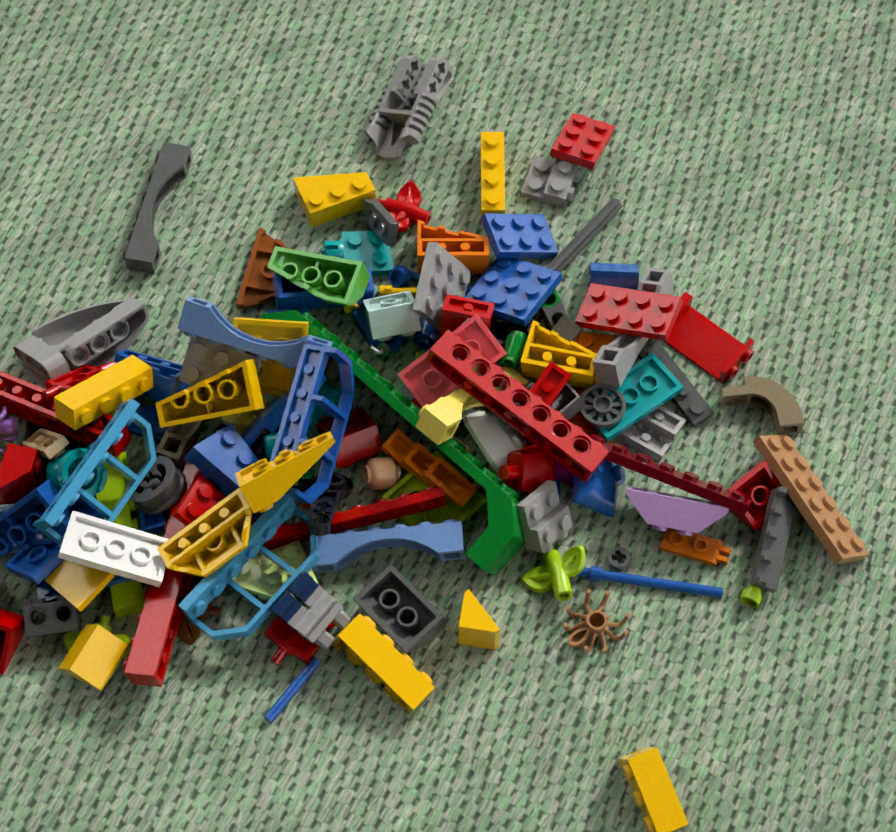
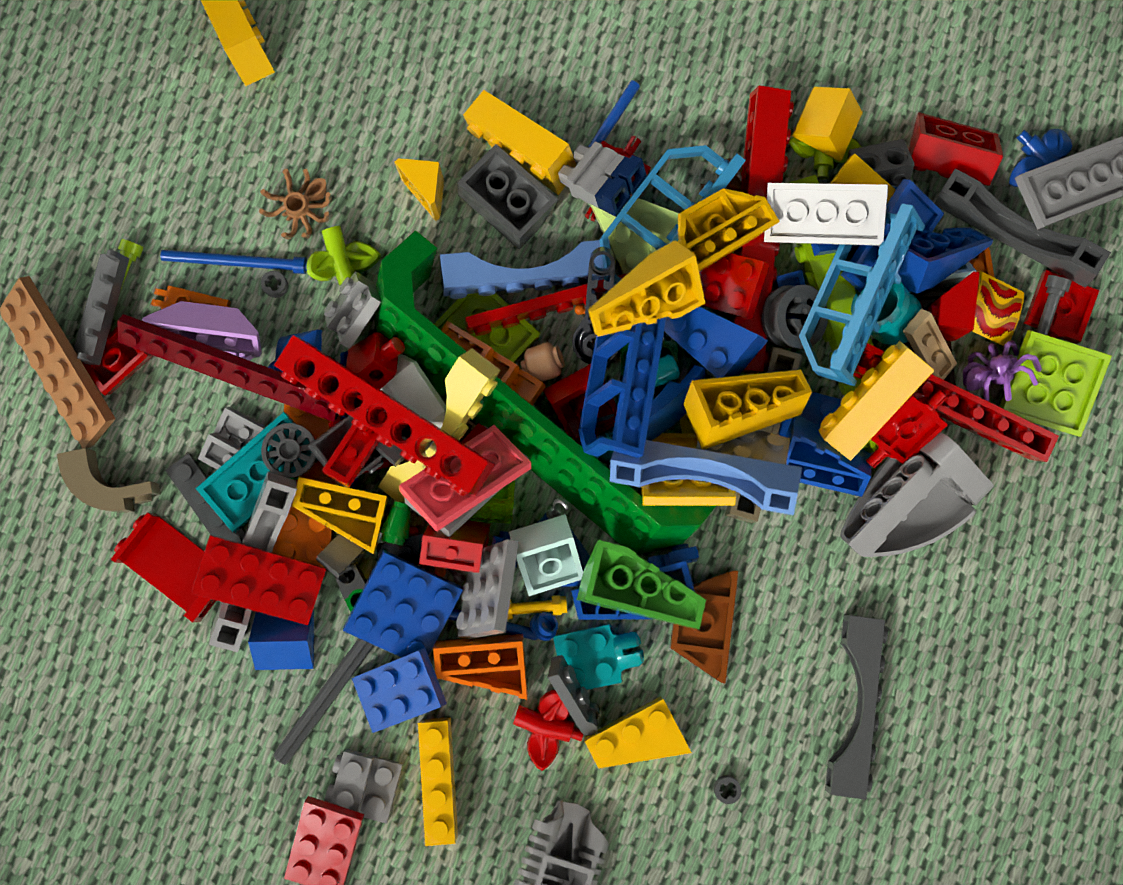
camera: 175 degrees right, 20 degrees up
(268, 167) = (728, 799): none -> dark grey bush

